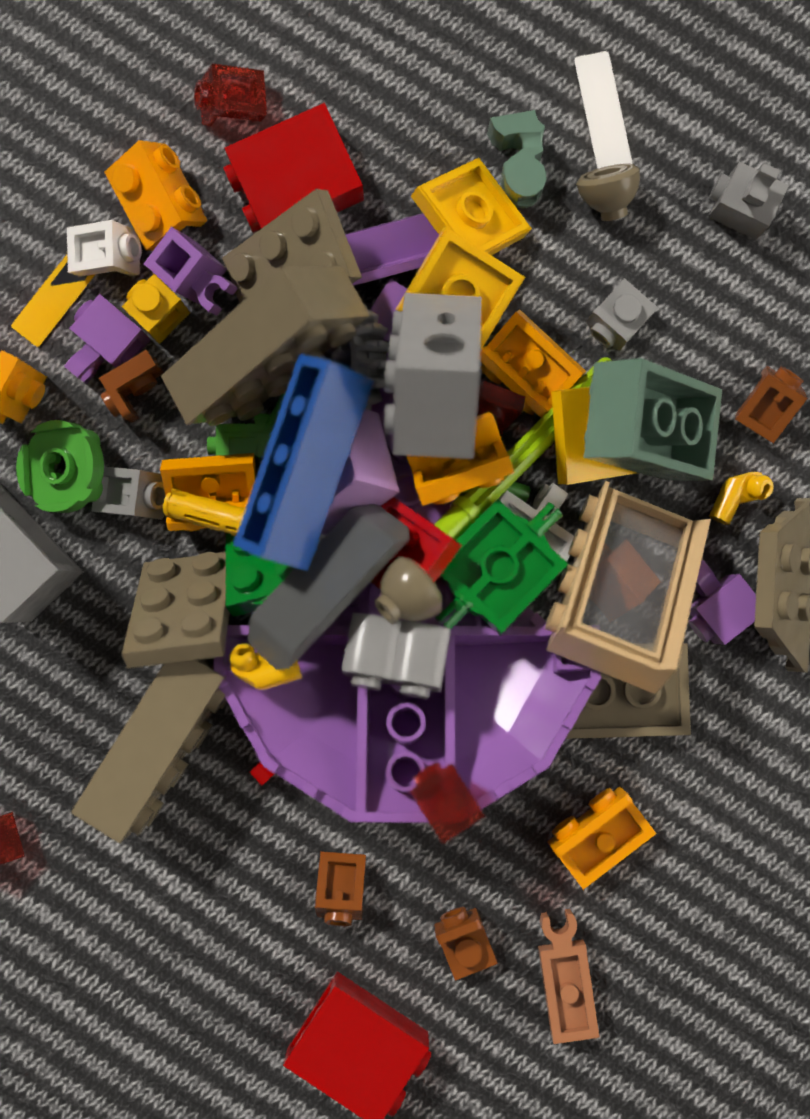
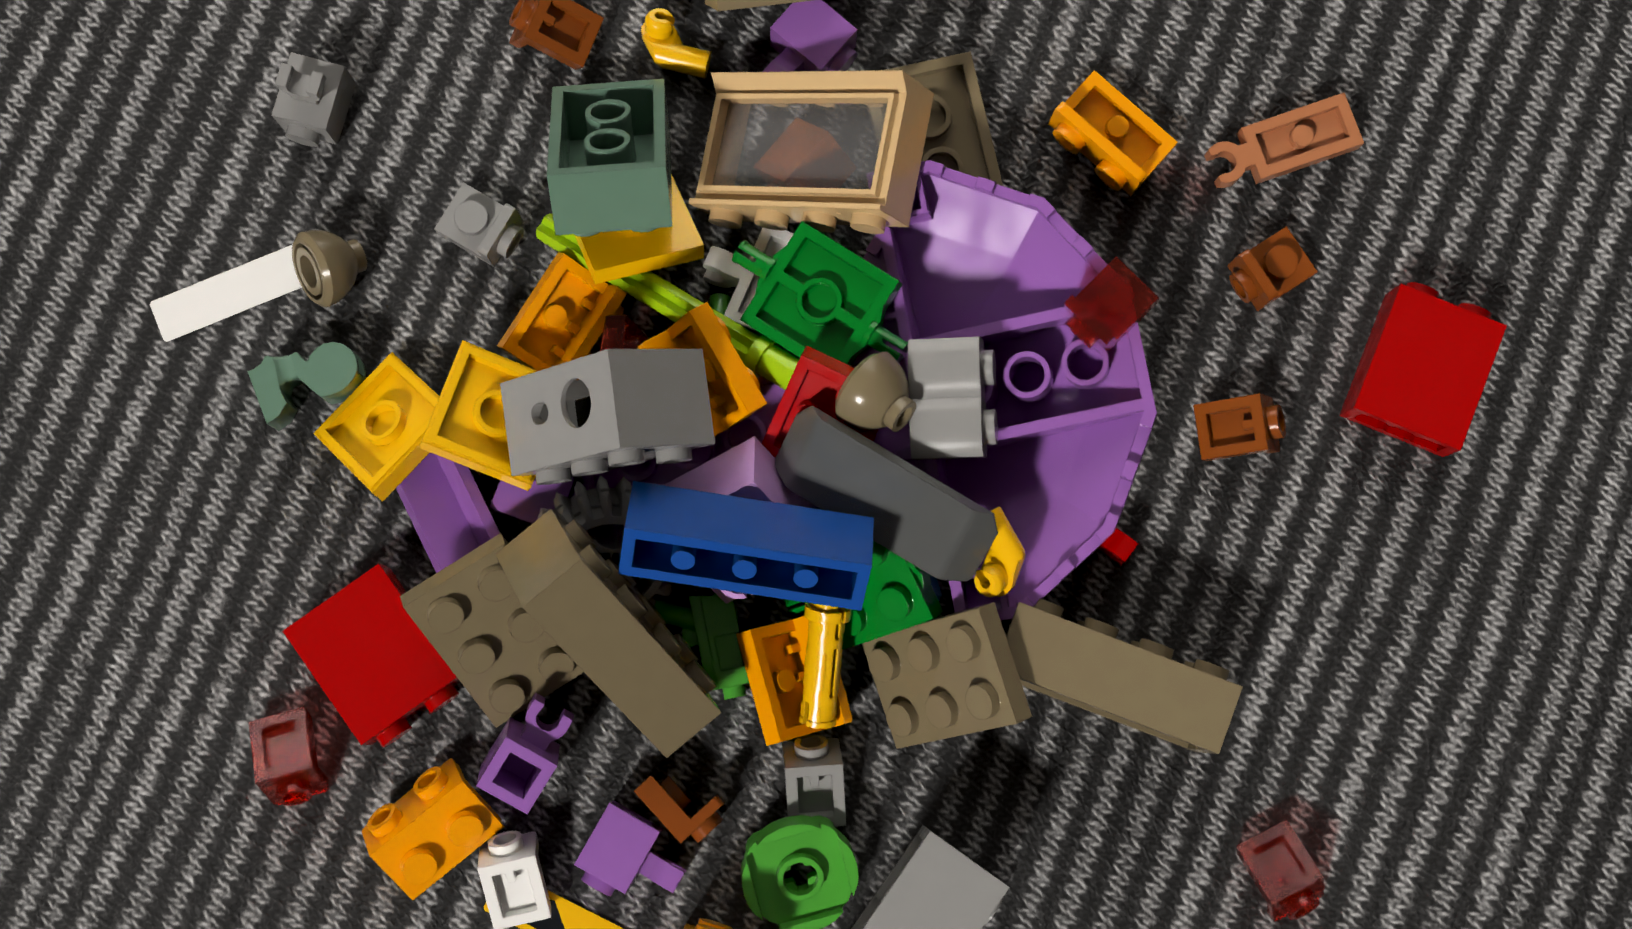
camera: 105 degrees left, 5 degrees down
(155, 307) = (575, 797): yellow brick -> none

